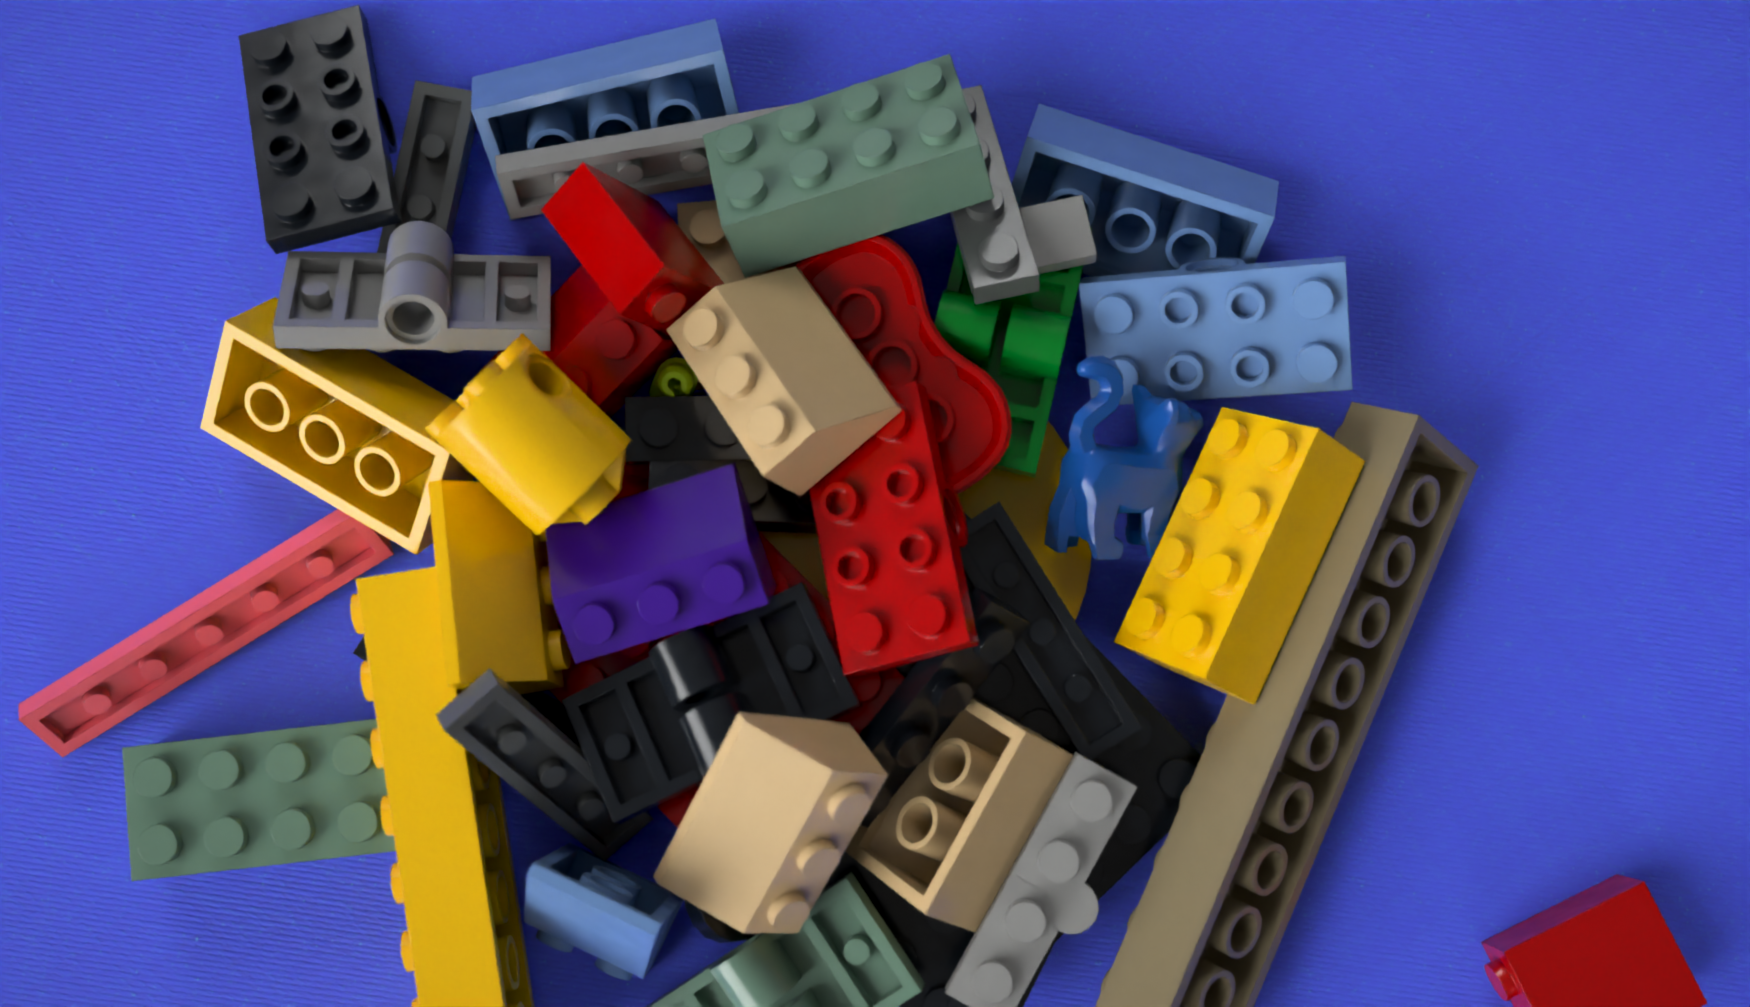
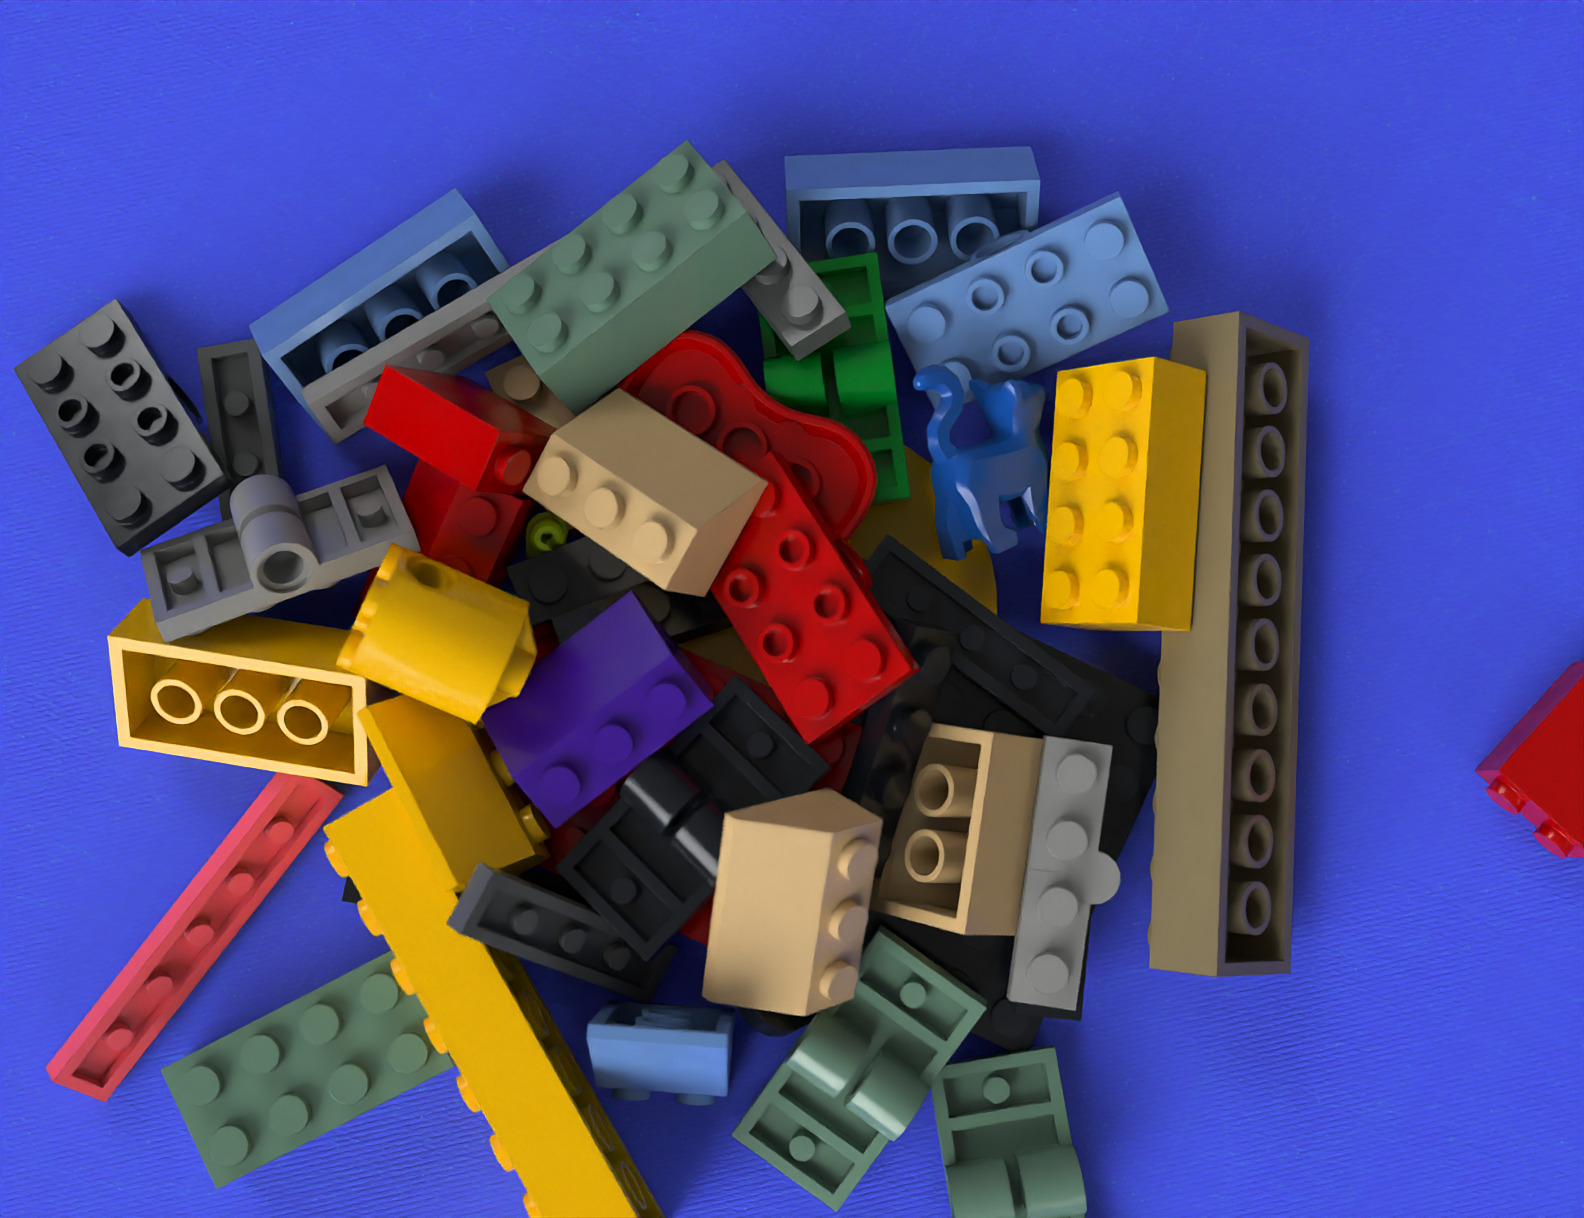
camera: 20 degrees left, 0 degrees up
(1059, 234) = (850, 268): light grey tile -> none

